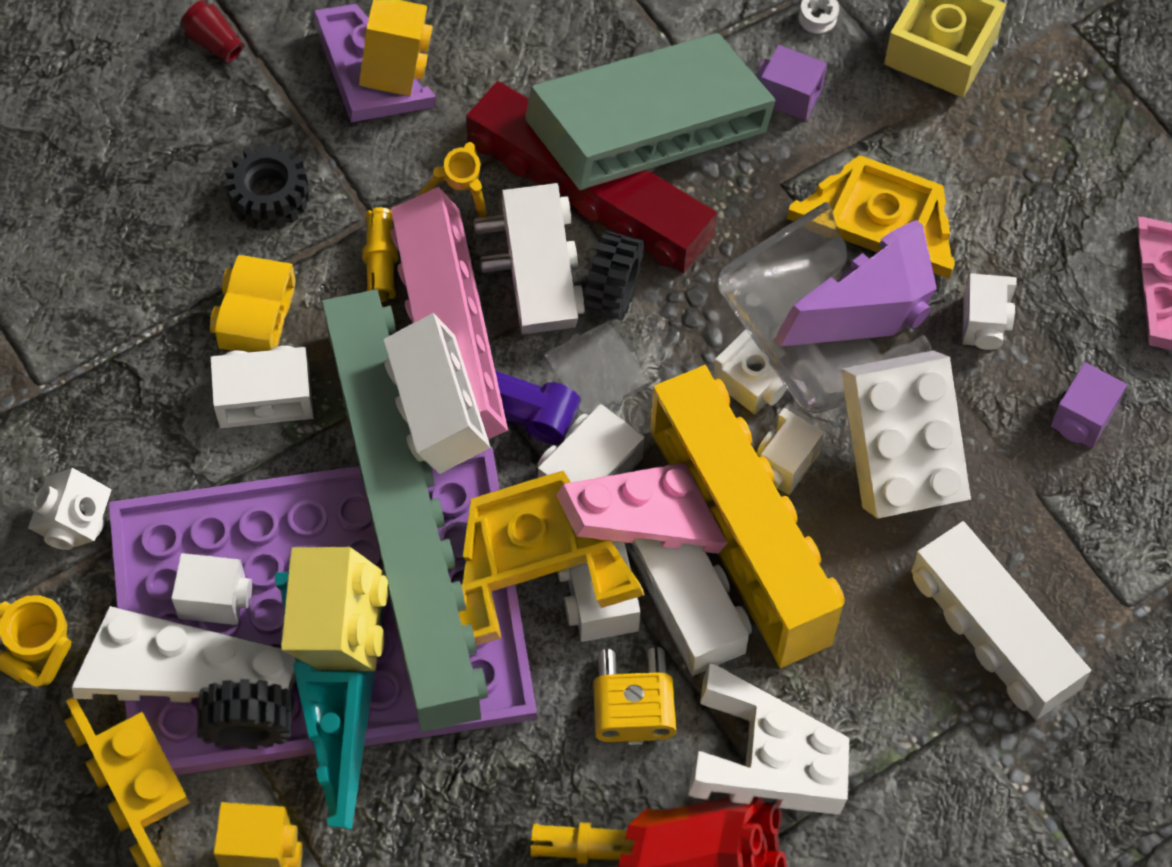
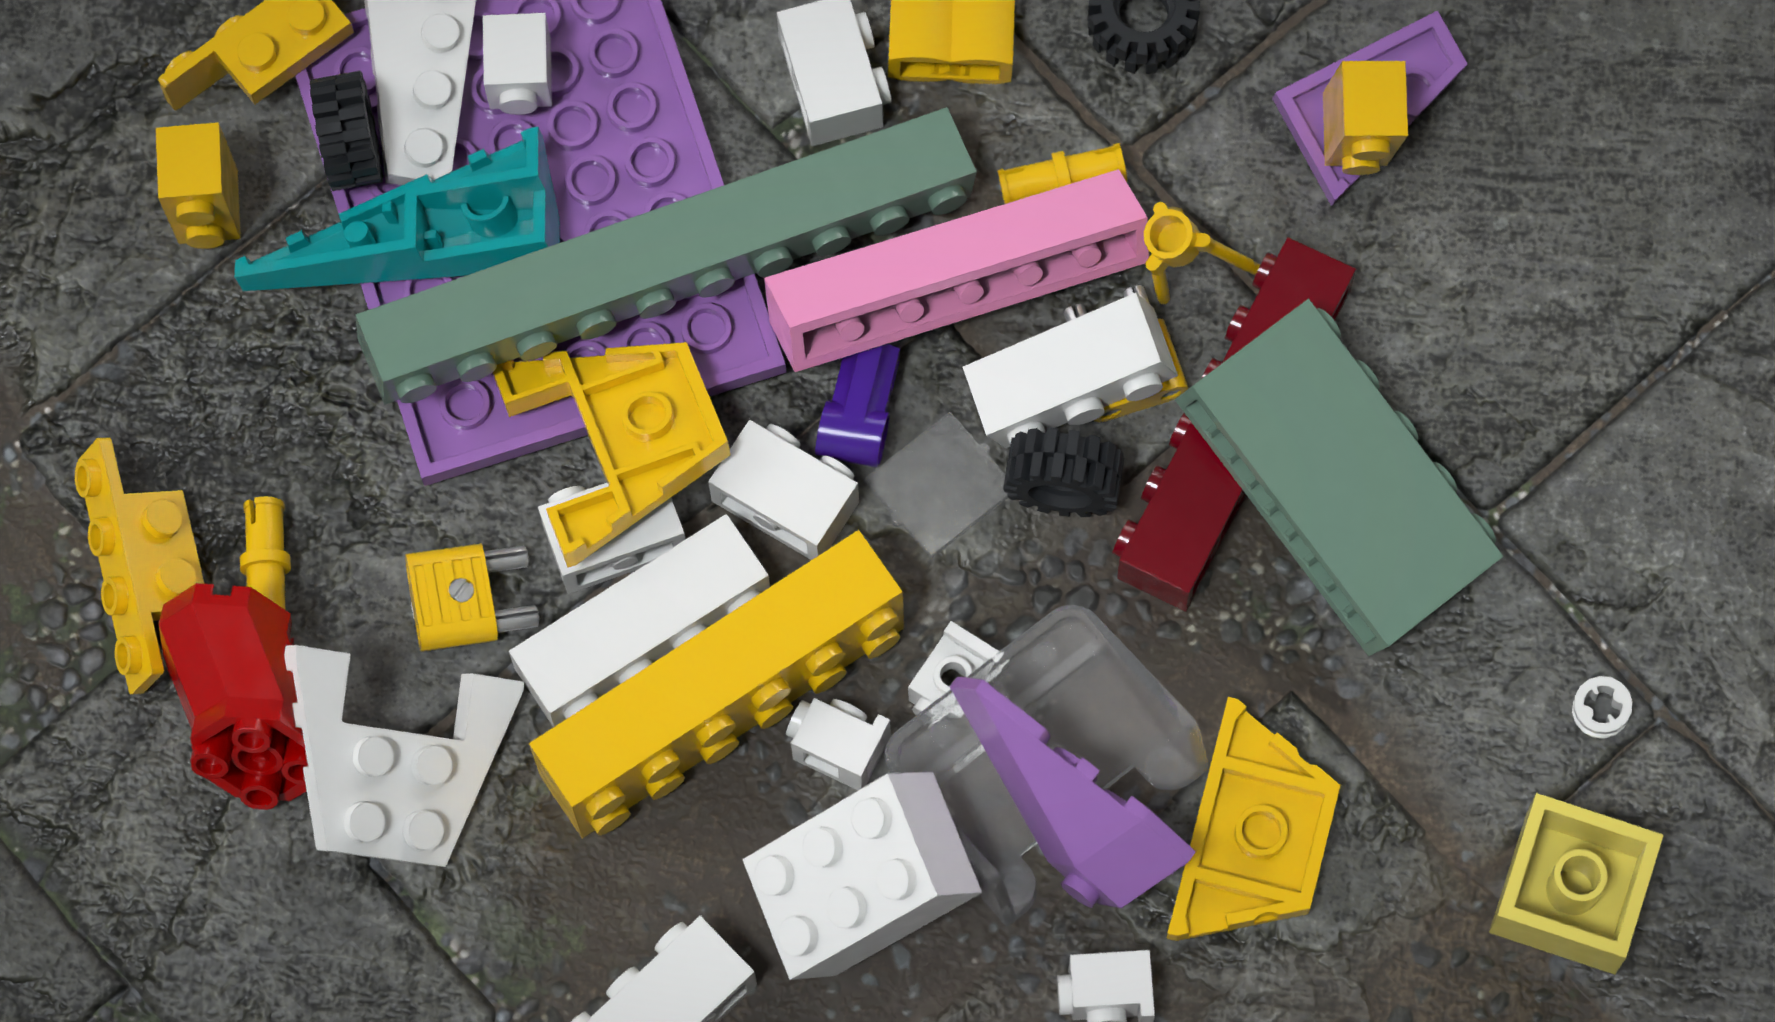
camera: 85 degrees right, 10 degrees up
(334, 609) = (470, 193): light yellow brick -> none
(435, 394) = (801, 261): white brick -> none
(645, 505) = (686, 542): bright pink wing -> none
(793, 81) = (1454, 676): medium lavender brick -> none

